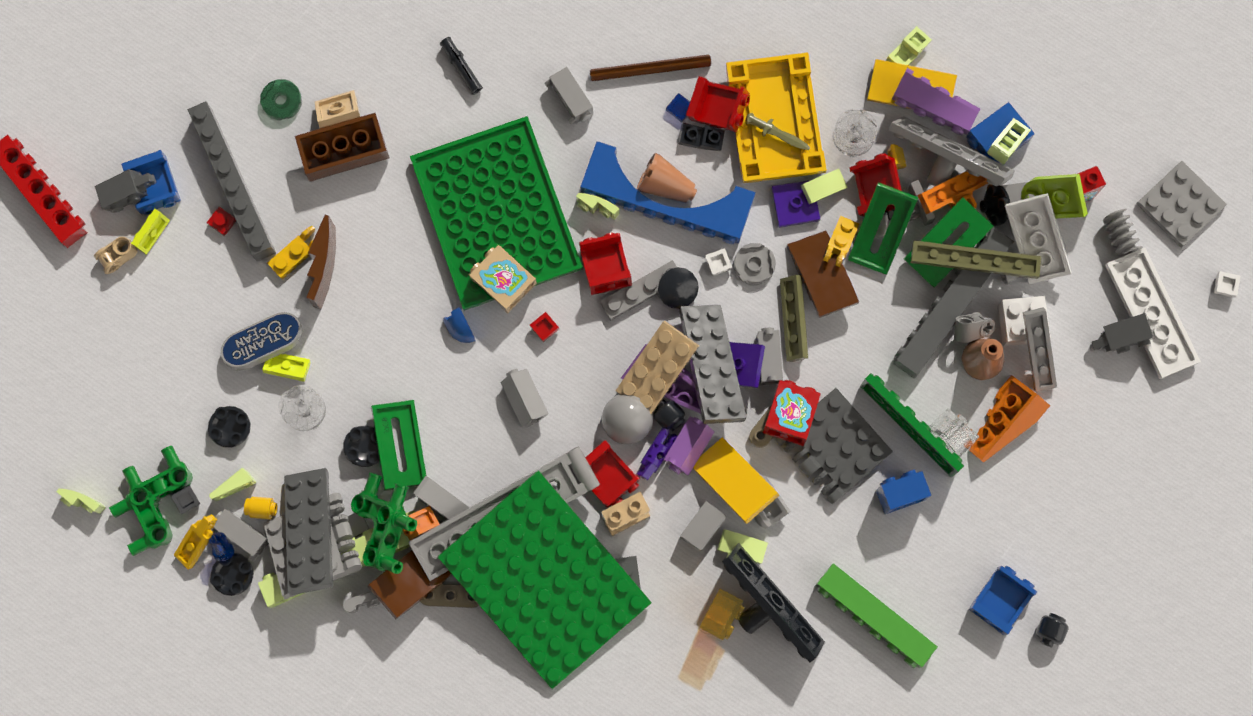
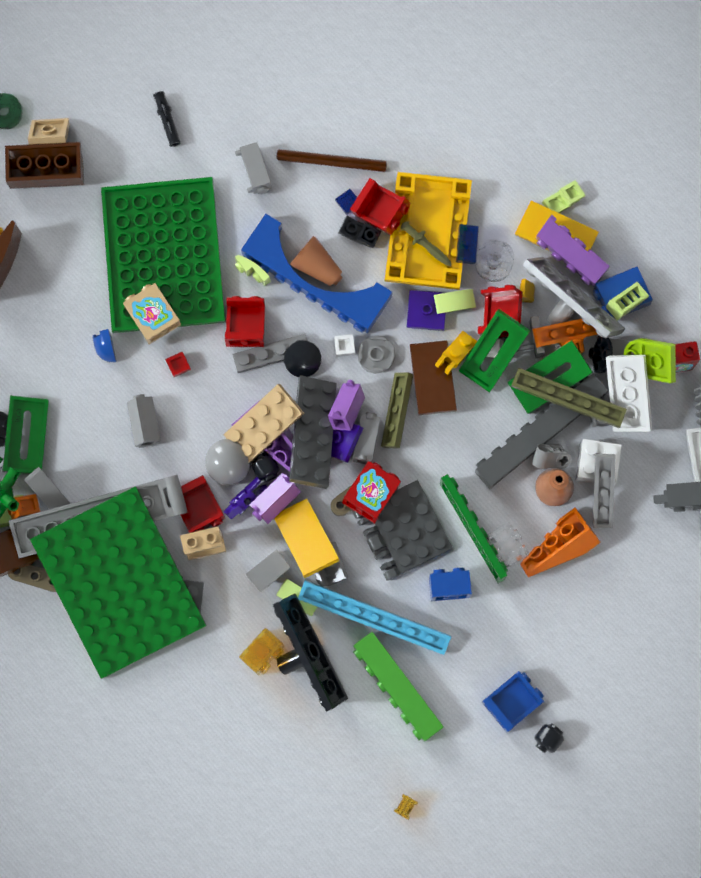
camera: 15 degrees right, 0 degrees up
(740, 327) = (346, 406): none -> medium lavender brick
(821, 122) = (467, 244): none -> clear blue plate
(830, 547) = (374, 617): none -> medium azure plate

